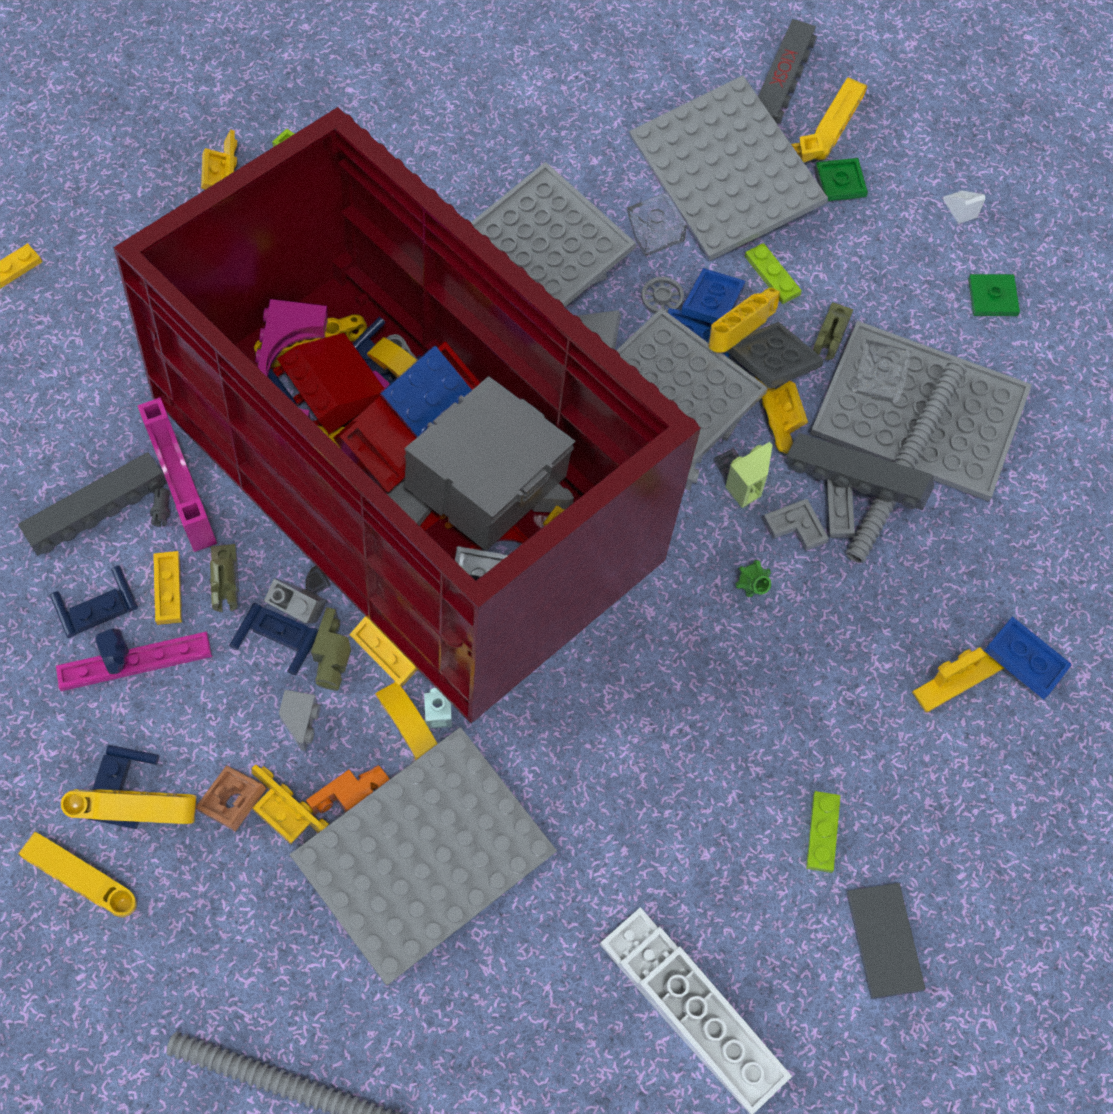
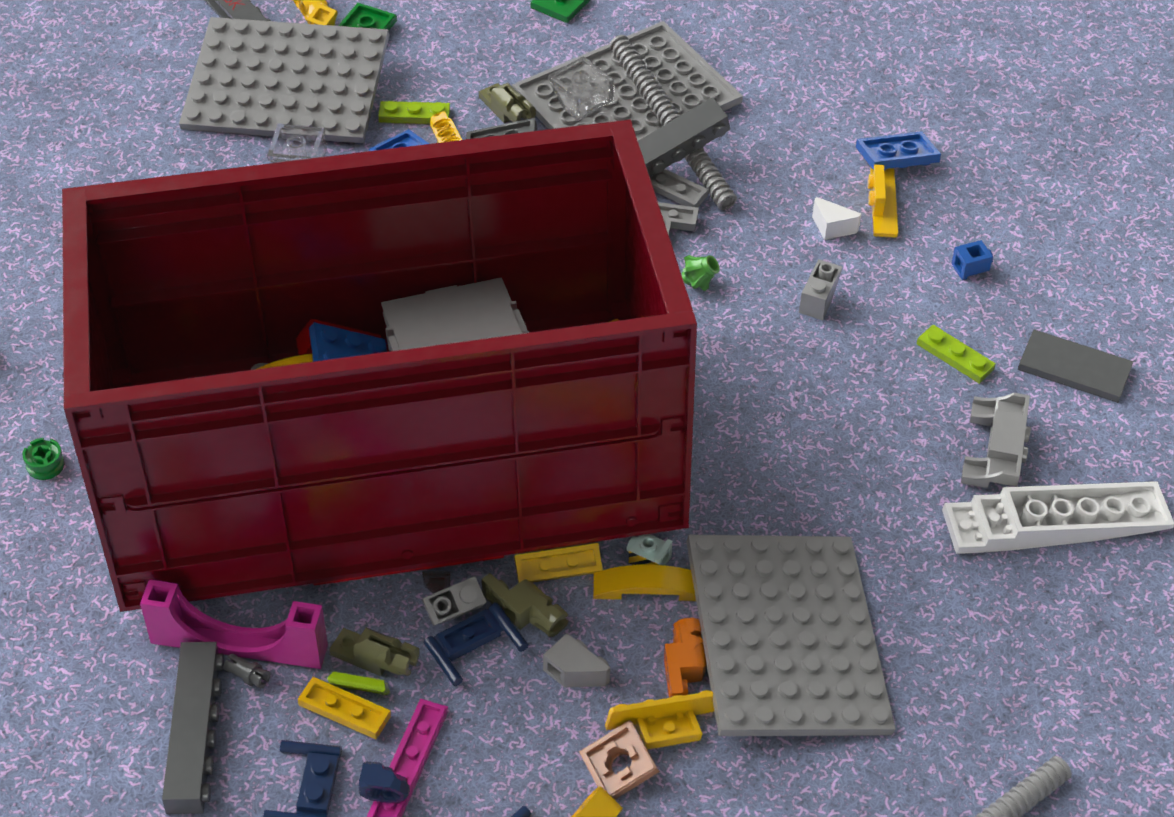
camera: 55 degrees left, 15 degrees down
(191, 584) = (358, 683): none -> lime tile
(741, 923) = (1006, 441): none -> light grey bracket
(806, 683) = (820, 289): none -> light grey slope
(900, 651) = (834, 219): none -> white slope
(943, 780) = (971, 259): none -> blue brick

